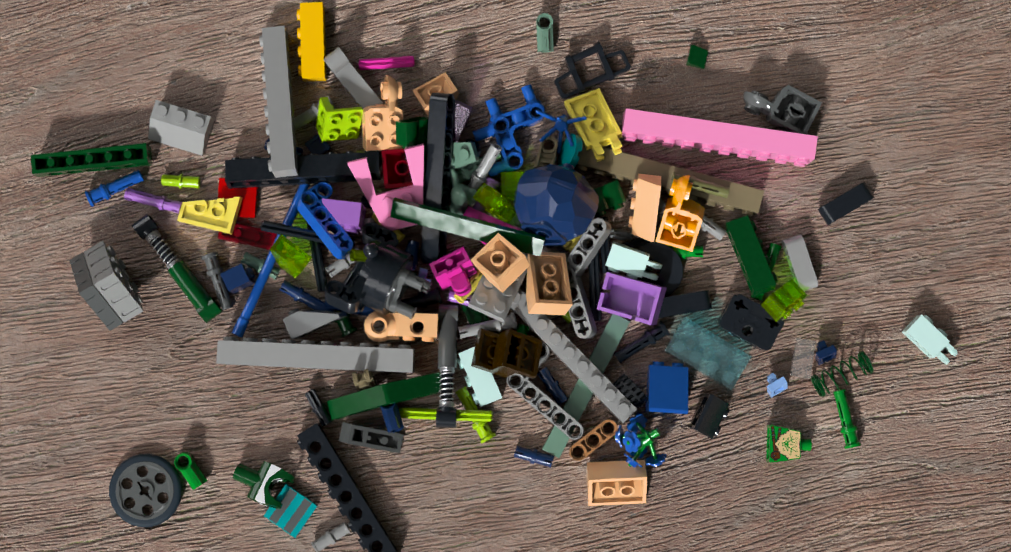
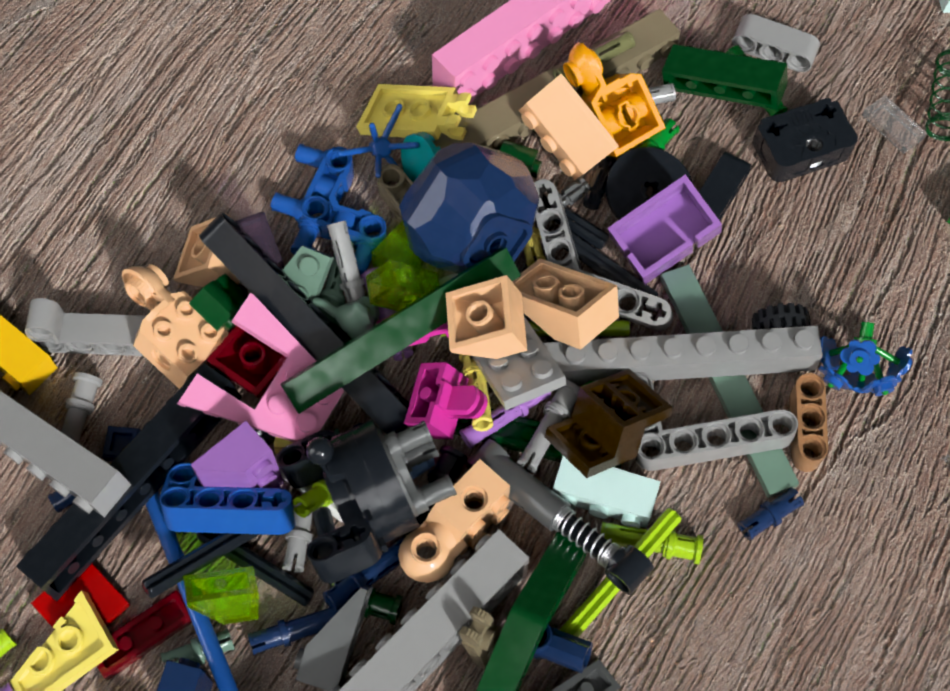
camera: 45 degrees left, 20 degrees down
(337, 123) = (116, 386): lime bracket -> none
(385, 63) = (110, 279): dark pink axle -> none
(545, 35) = (258, 87): sand green piece -> none
(552, 386) = (694, 414): dark blue pin -> none
(608, 75) = (349, 56): black bar -> none
(616, 483) = (890, 440): light nougat slope -> none
(630, 261) = (615, 197): light aqua hinge -> none
(649, 337) = (728, 259): black pin -> none
(667, 388) = (817, 280): blue slope -> none
(707, 353) = (804, 210): clear light blue brick -> none
(709, 416) = (886, 266): black slope -> none
(776, 385) = (904, 170): light blue tile -> none
(784, 300) = (811, 81): clear neon green brick -> none
(825, 353) = (907, 94): dark blue tile -> none

